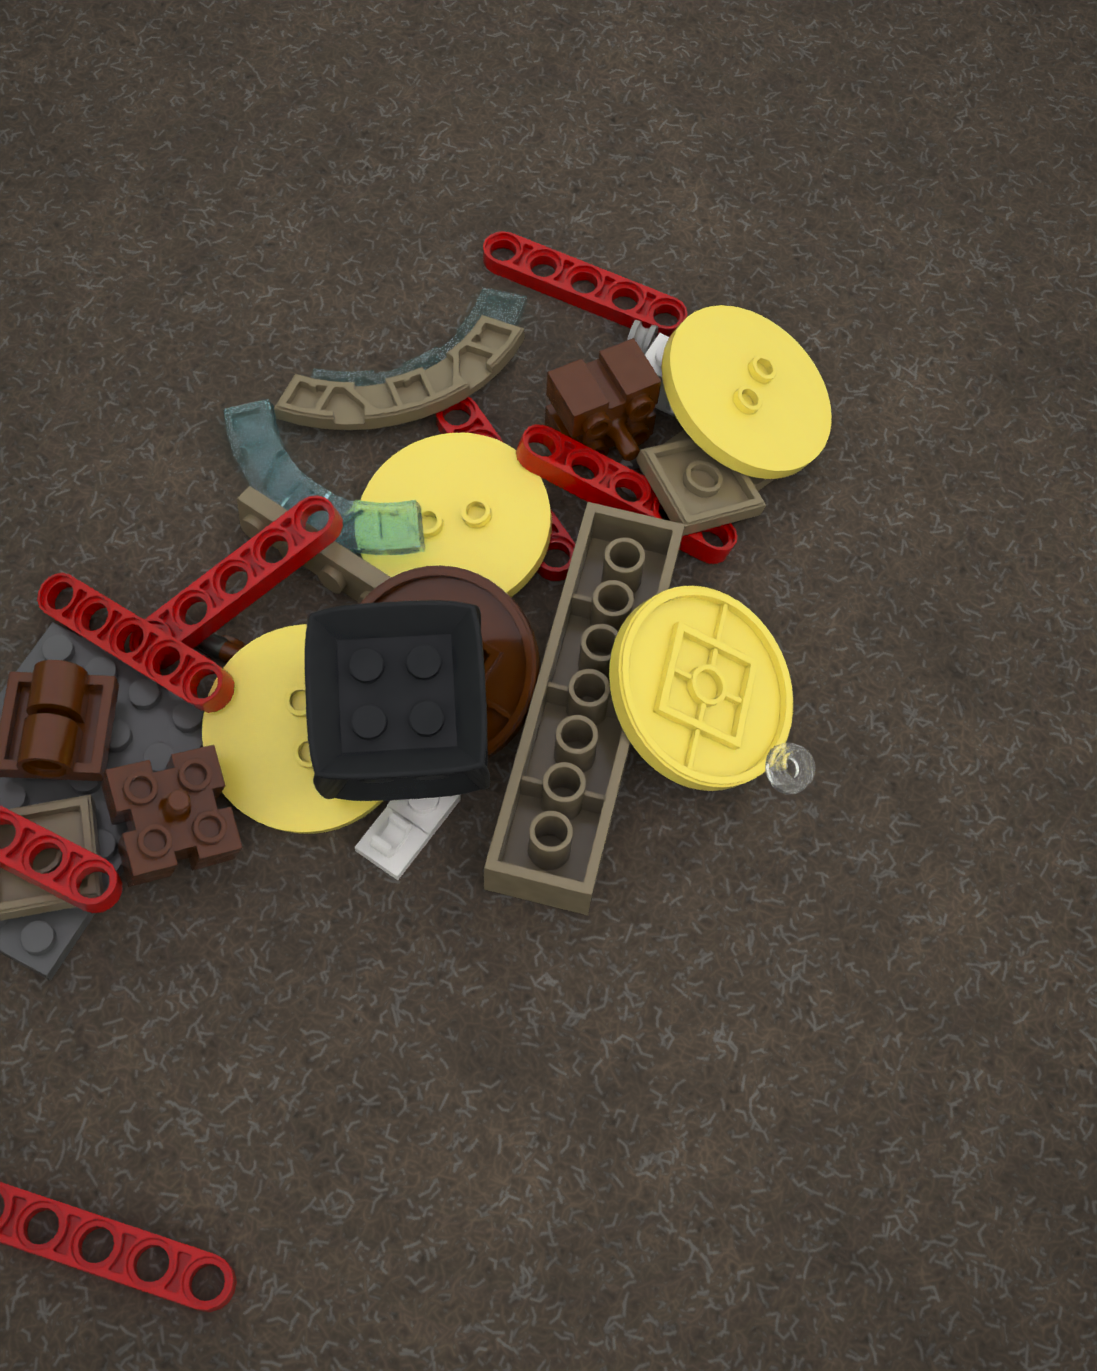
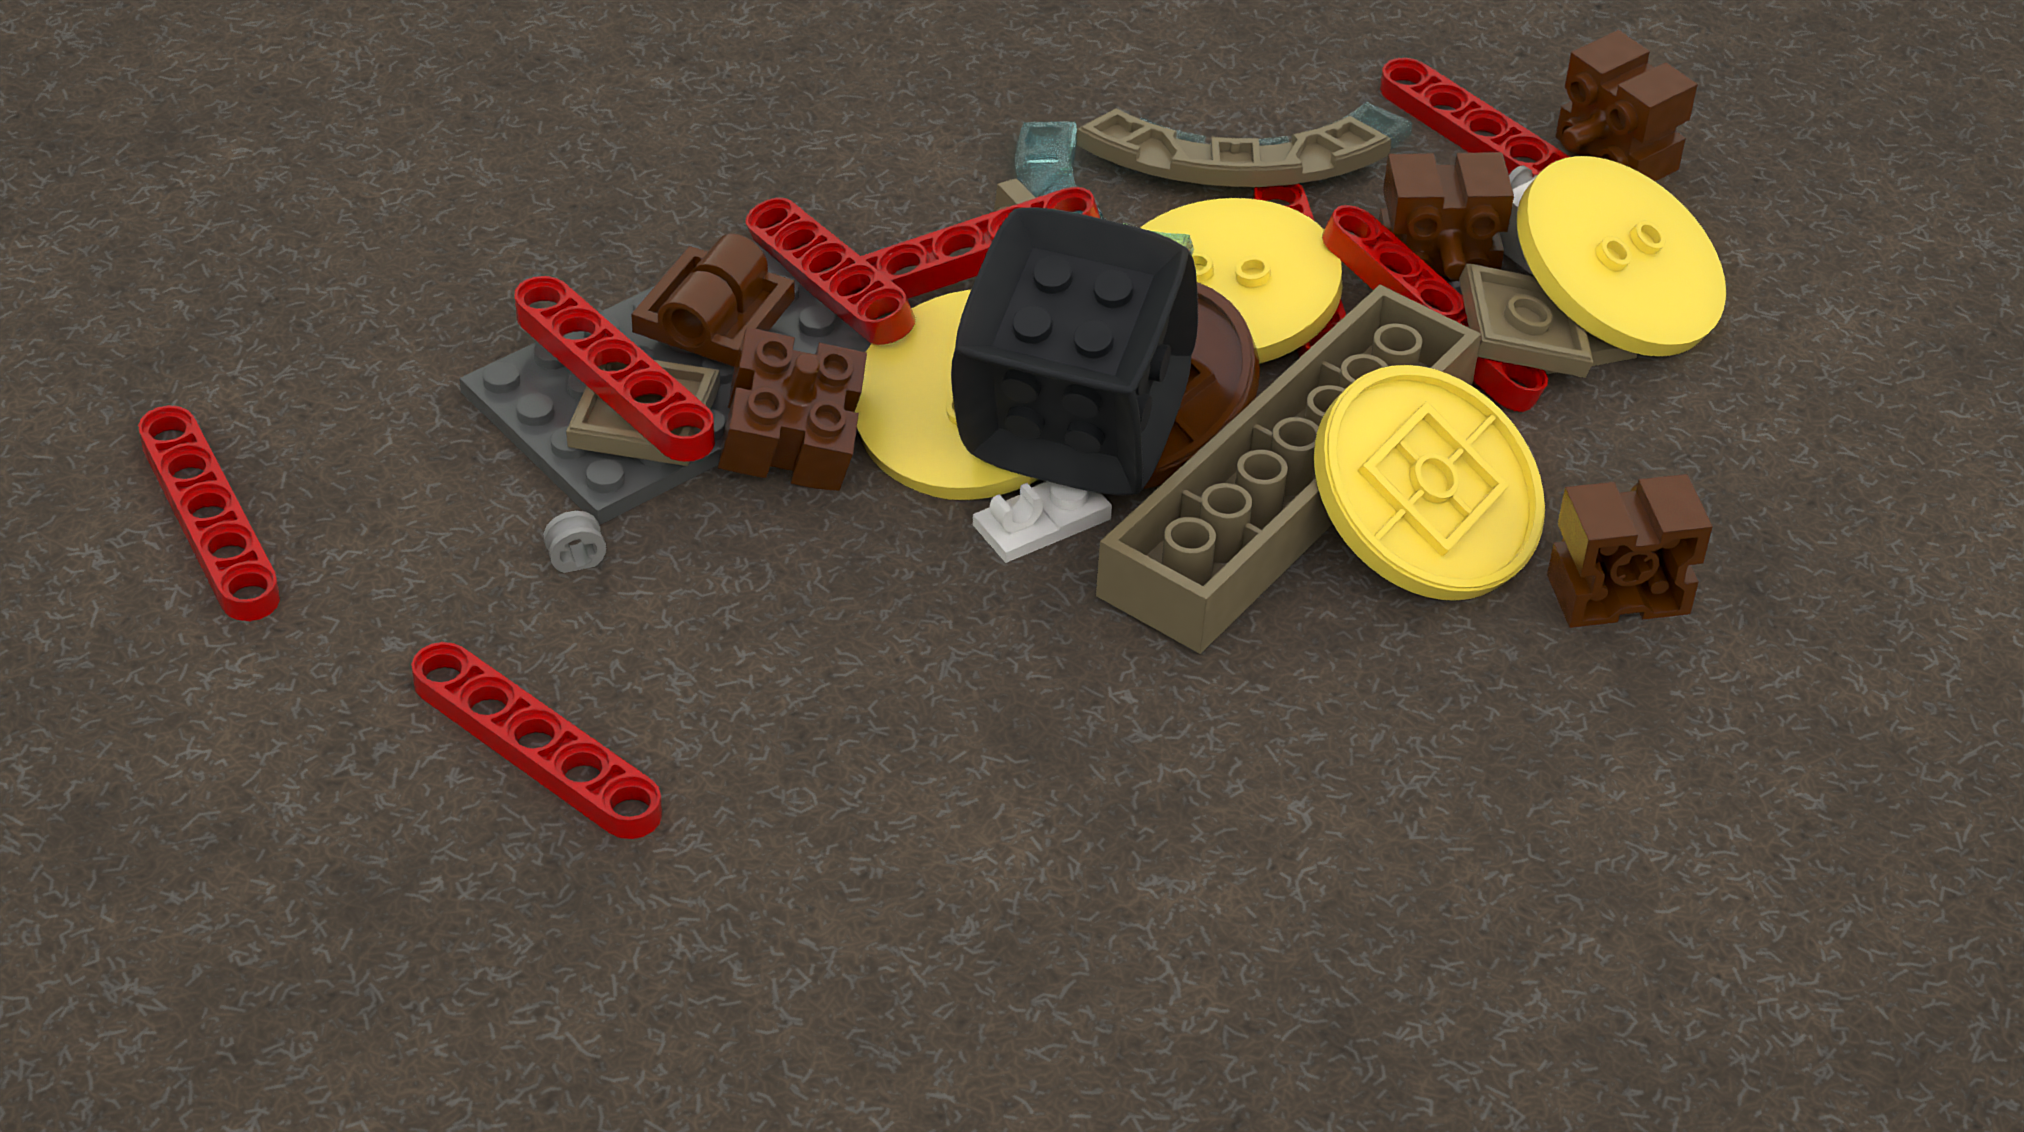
camera: 25 degrees right, 20 degrees down
(41, 1019) = (571, 527): none -> light grey bush
(690, 239) = (1625, 106): none -> reddish brown brick
(800, 767) = (1512, 592): clear plate -> none
(870, 696) = (1628, 550): none -> reddish brown brick

